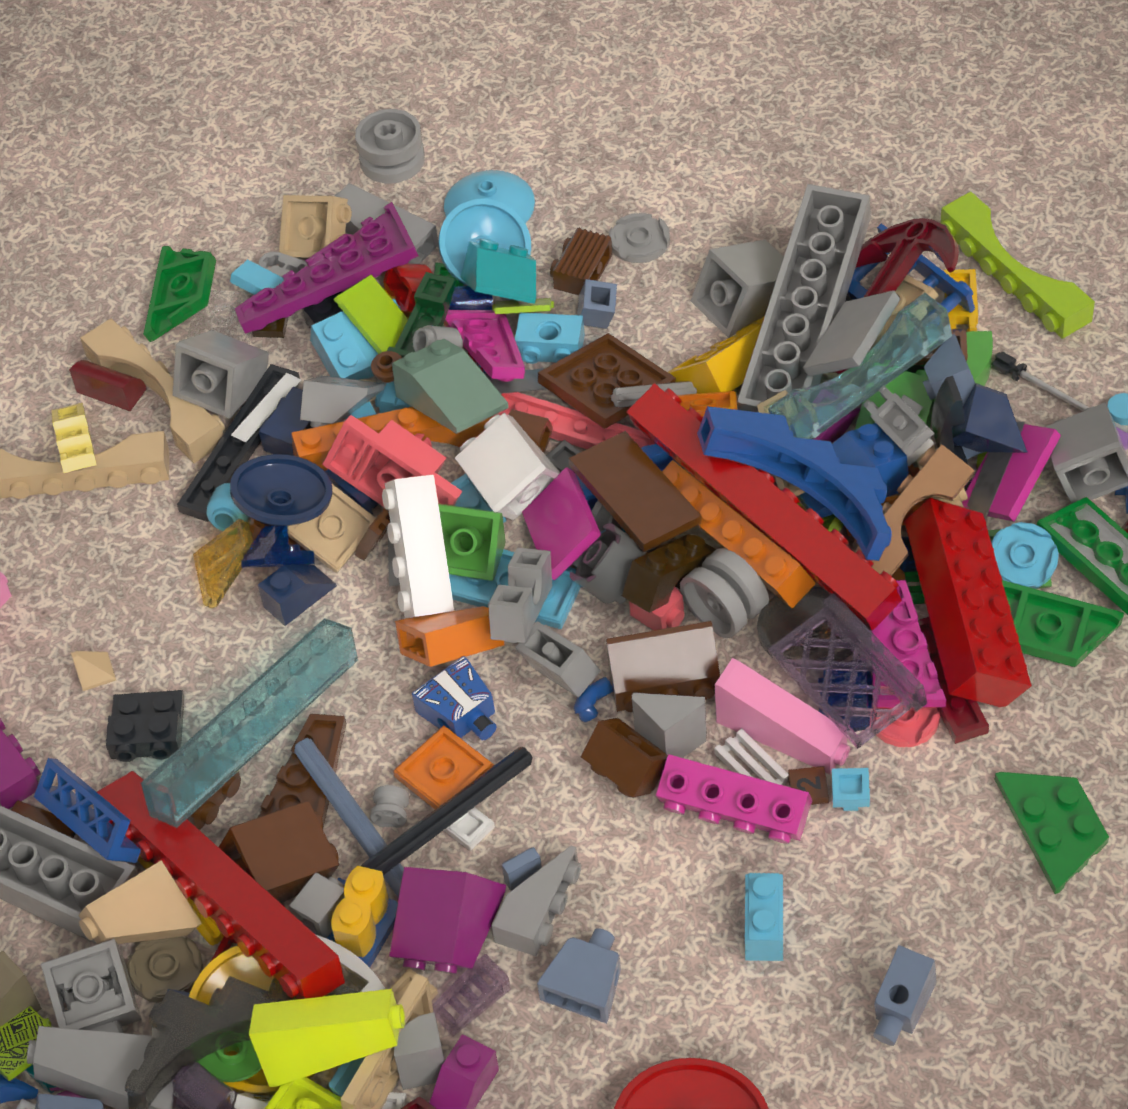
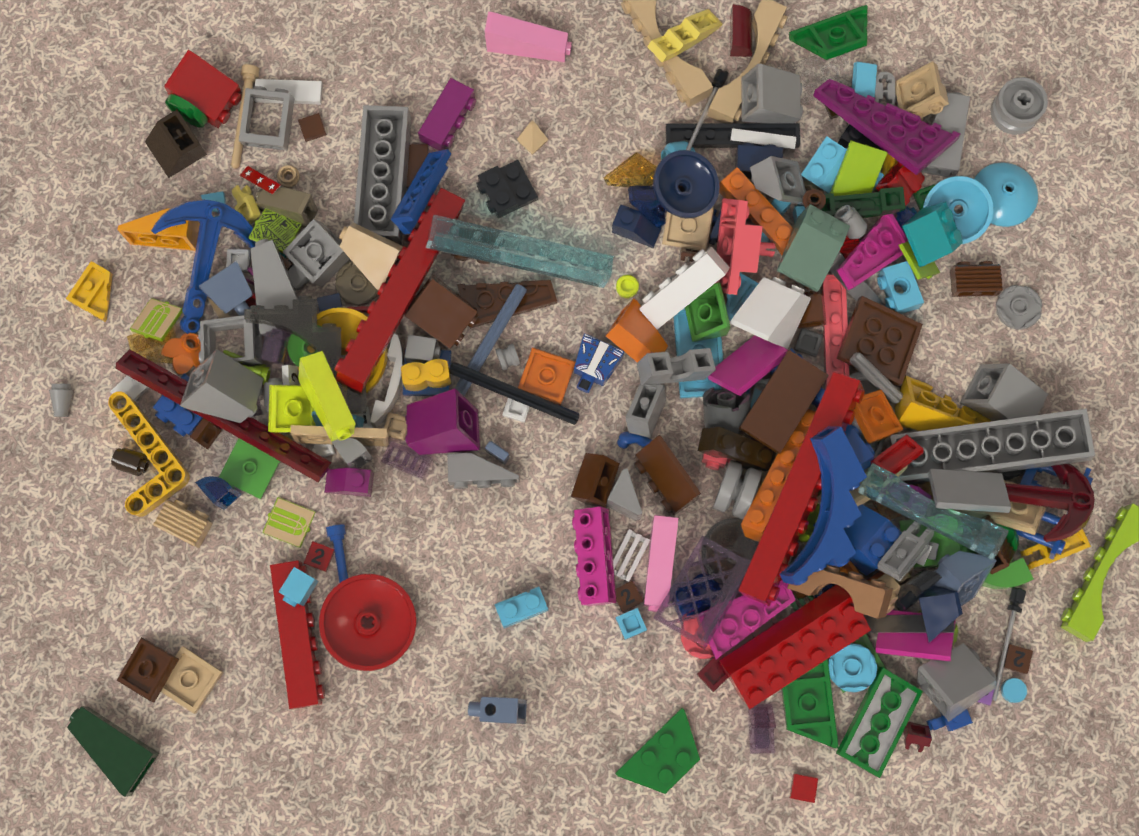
camera: 60 degrees right, 25 degrees up
(155, 425) = (718, 82): none -> piece
(372, 632) = (627, 286): none -> neon yellow tile
(583, 976) = (442, 520): sand blue torso -> none
(597, 303) = (939, 306): sand blue brick -> none
(766, 388) = (899, 455): none -> red tile
(1062, 694) = (761, 729): none -> clear purple slope
(1086, 389) = (1018, 659): none -> reddish brown tile

